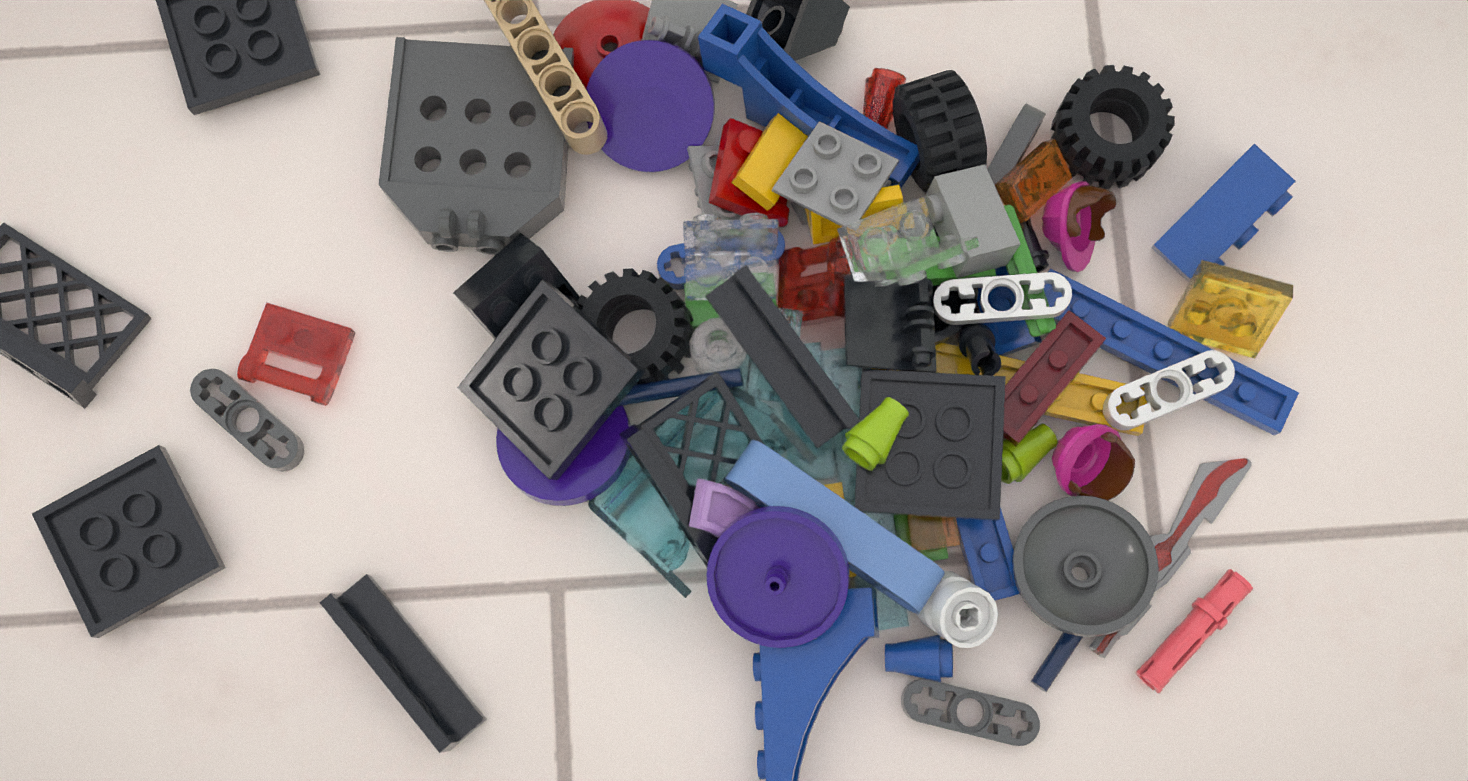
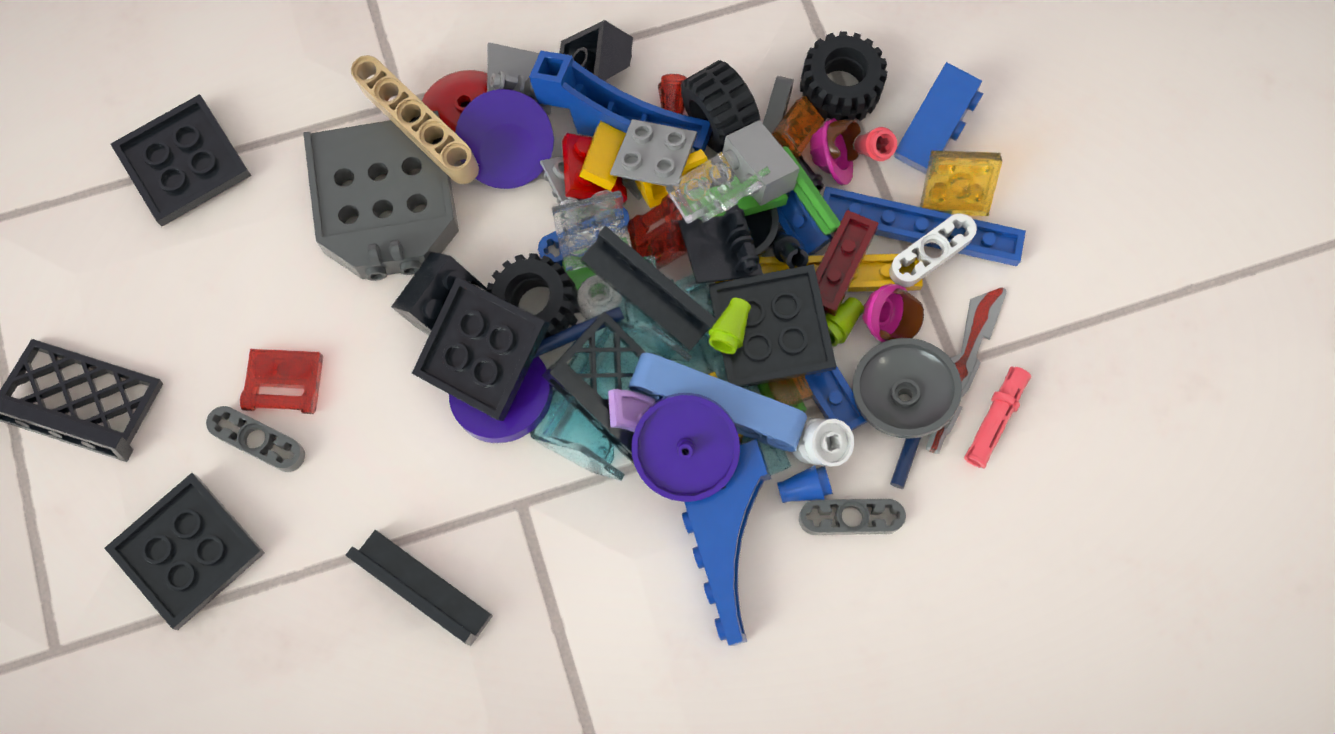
camera: 15 degrees left, 5 degrees down
(1038, 306) = (824, 211): white beam -> none
(1132, 229) = (877, 144): none -> coral cone

